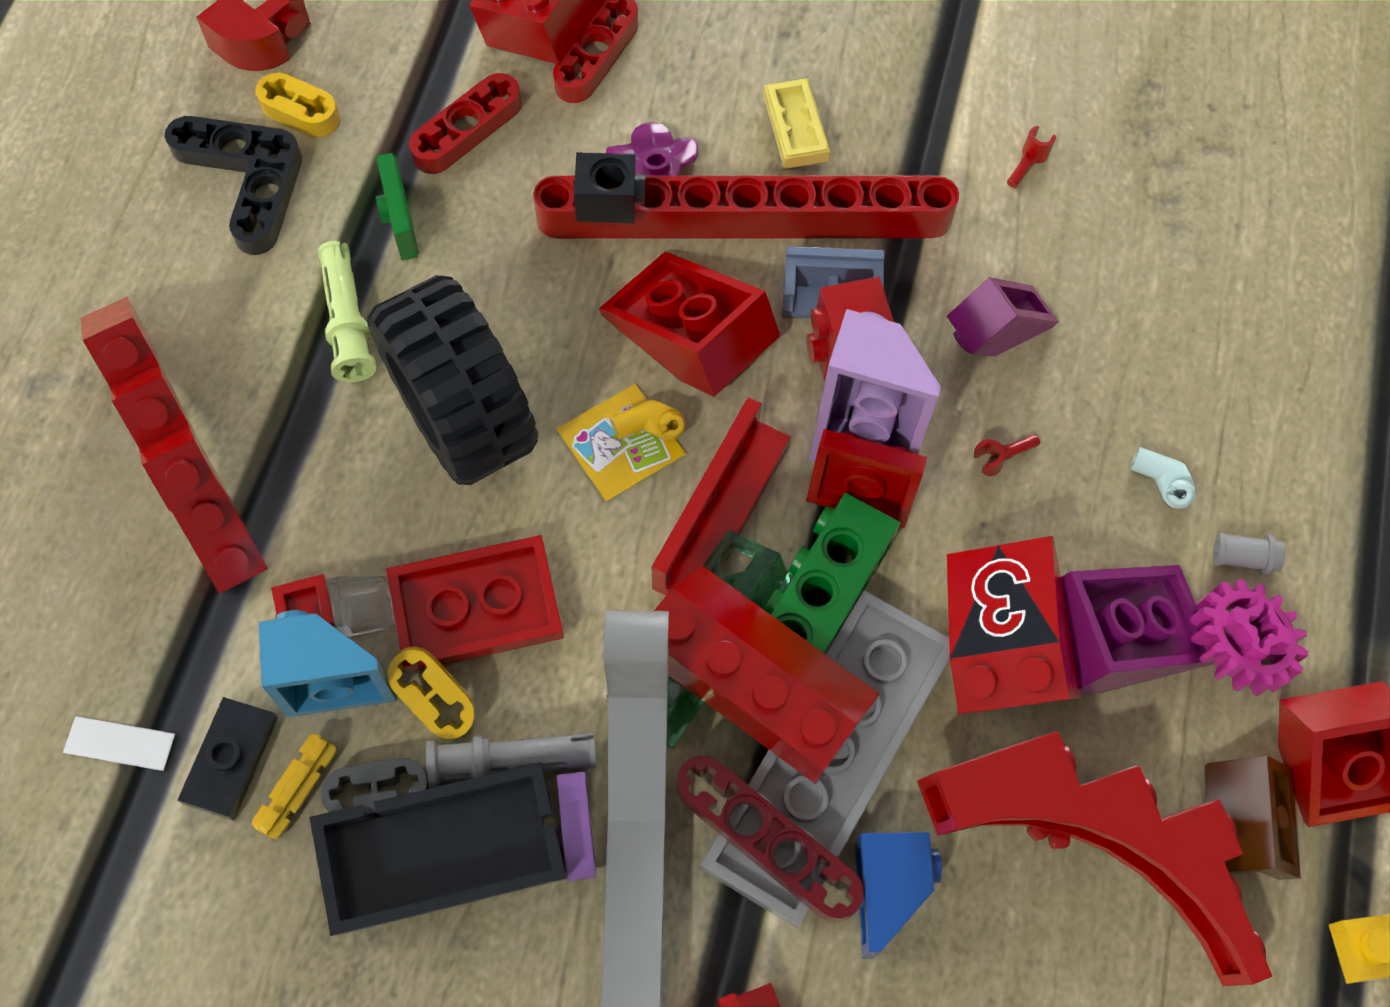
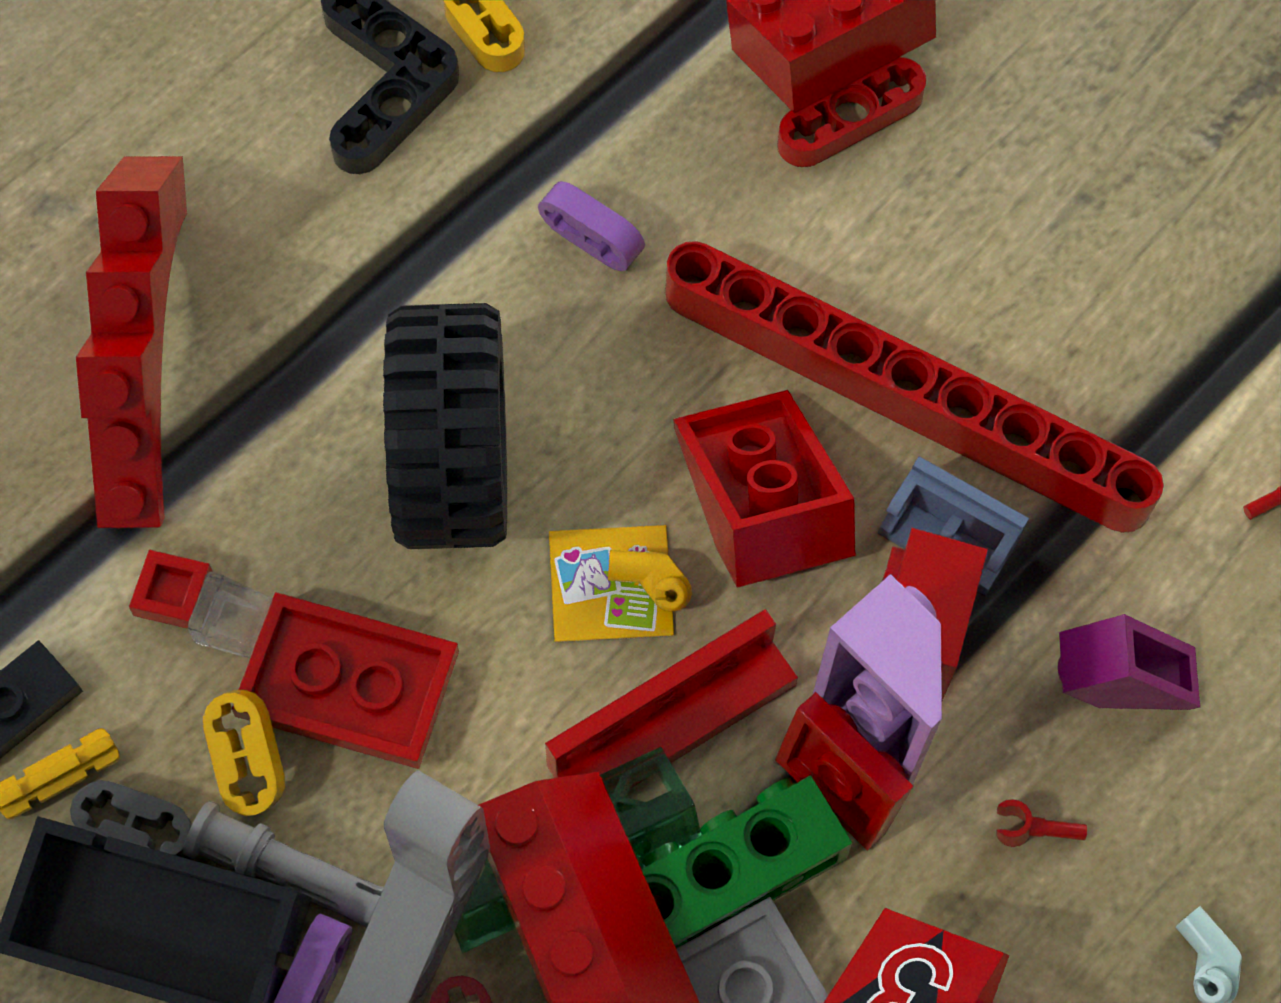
camera: 30 degrees right, 0 degrees up
(316, 667) = (136, 660): dark azure slope -> none
(346, 328) = (396, 282): yellowish green pin -> none
(394, 206) = (518, 193): green plate -> none
(460, 142) = (665, 111): red beam -> none
(462, 205) = (591, 226): none -> medium lavender beam
(607, 170) = (745, 266): black brick -> none
(657, 151) = (841, 269): magenta plate -> none
(796, 123) = (1028, 313): light yellow plate -> none

